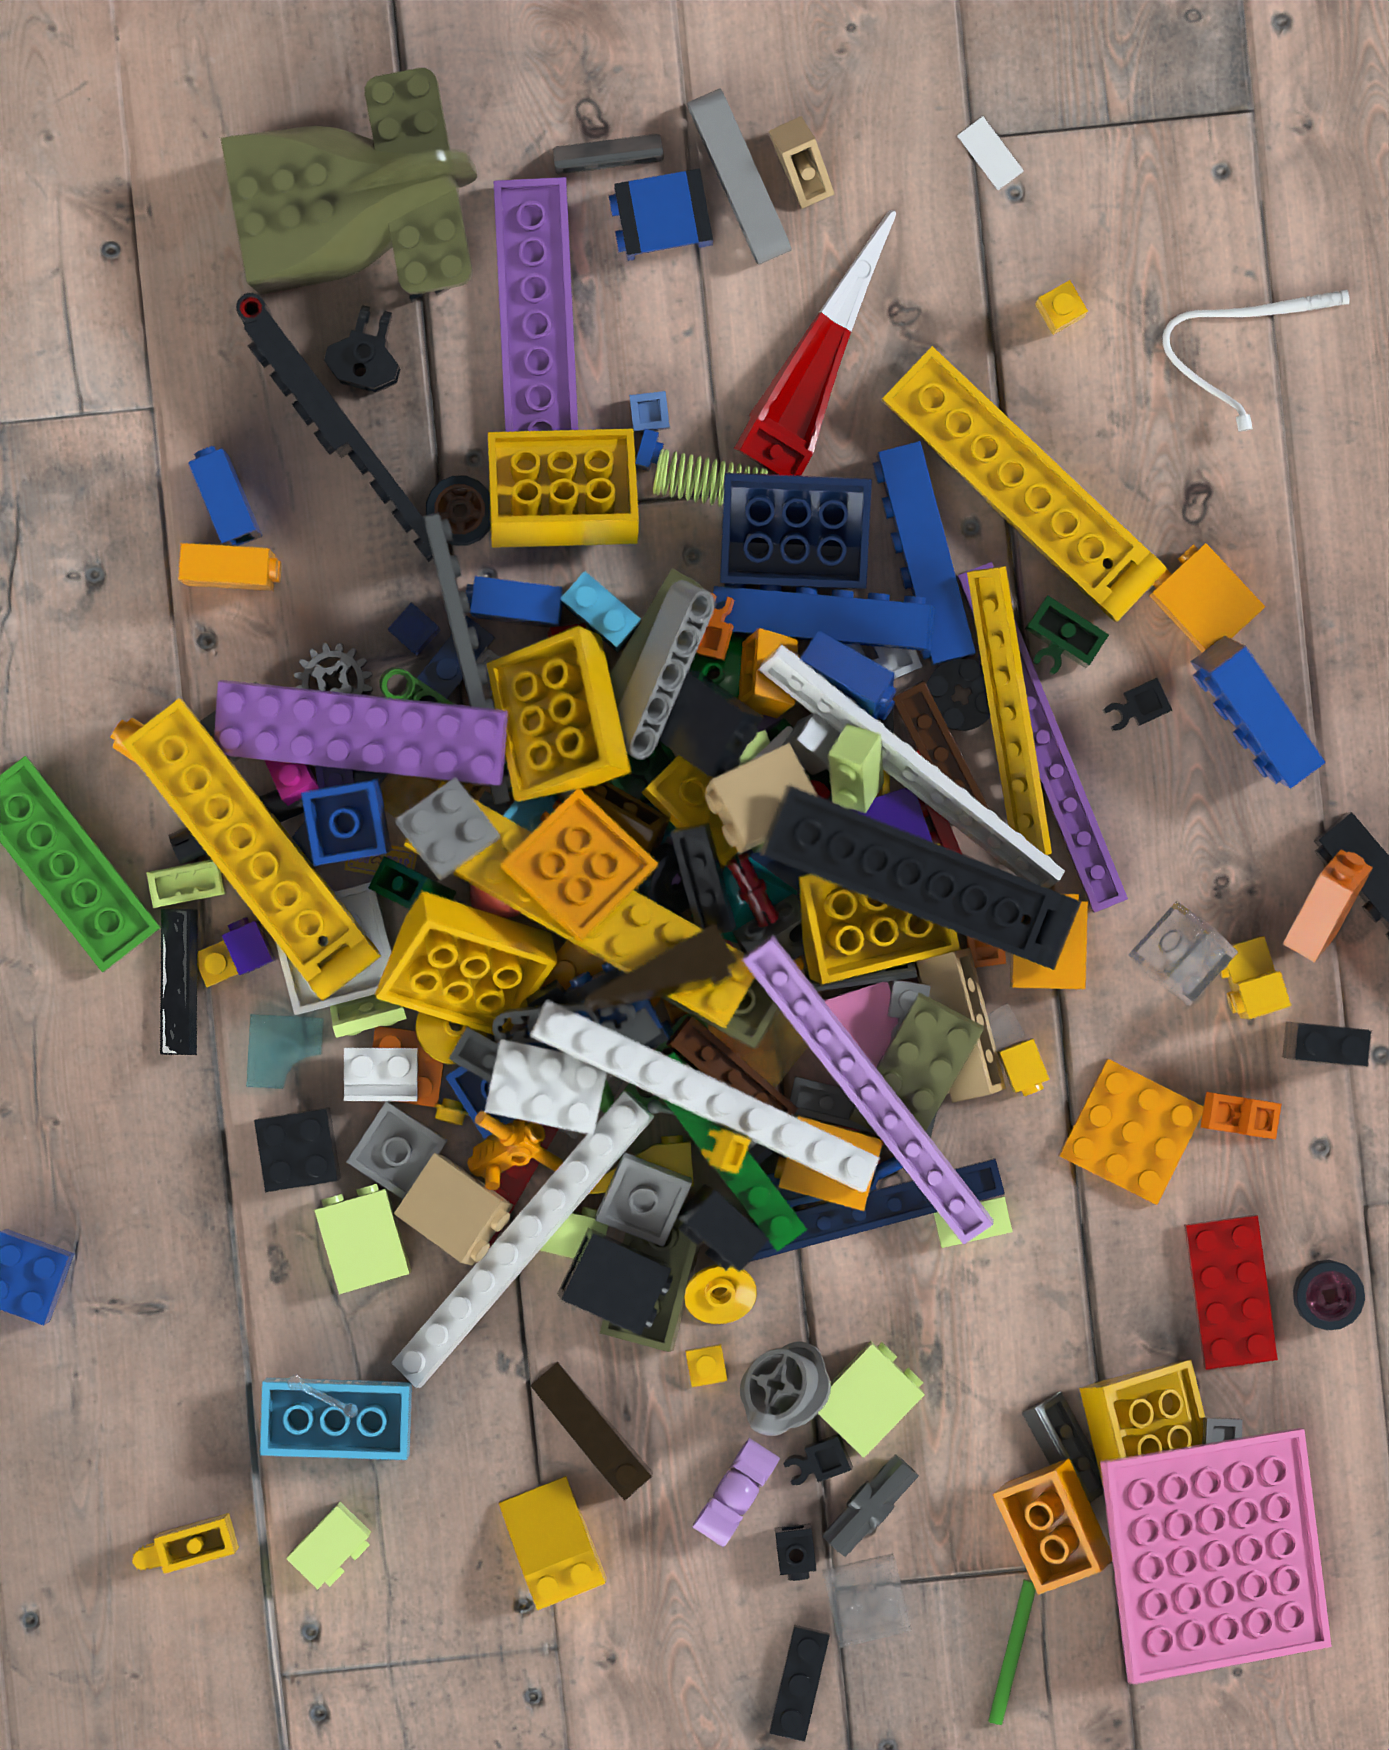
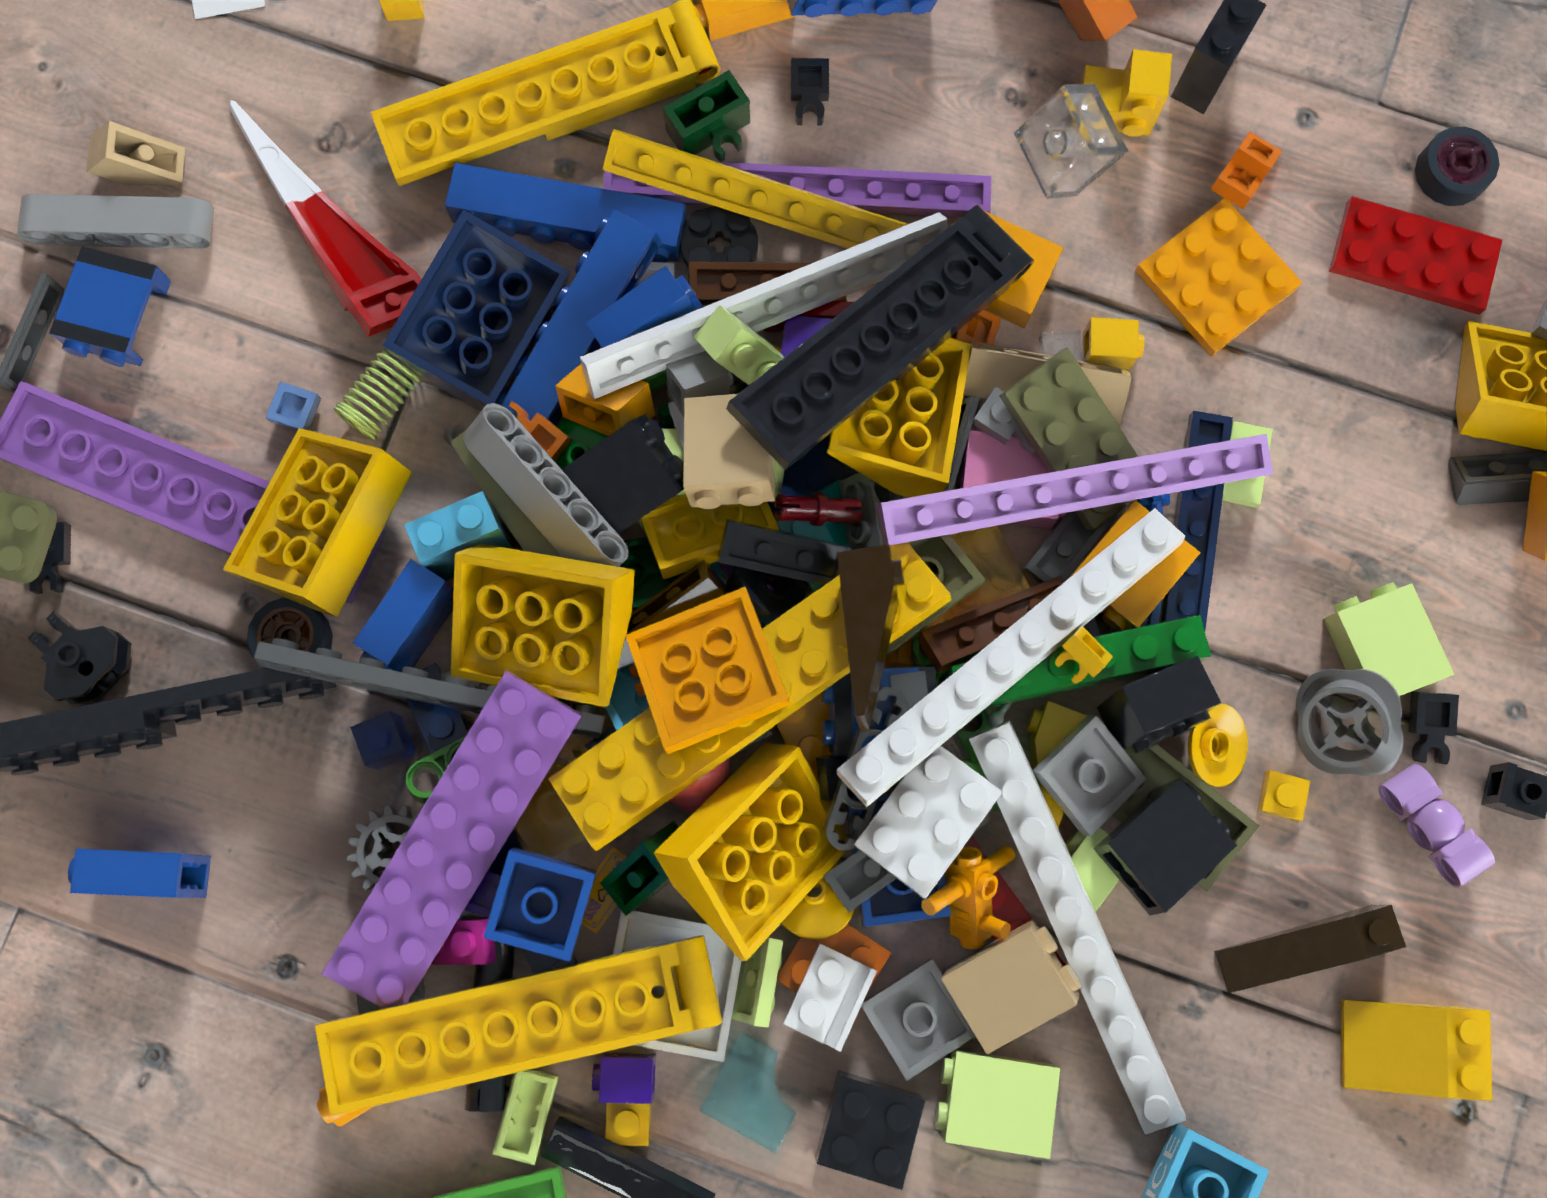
camera: 60 degrees left, 10 degrees down
(228, 567) = (212, 905): light orange brick -> none
(447, 828) = (599, 793): light grey plate -> none
(450, 1112) = (902, 940): yellow plate -> none
(648, 450) = (328, 421): blue plate -> none
(870, 1505) = (1500, 694): dark grey piece -> none

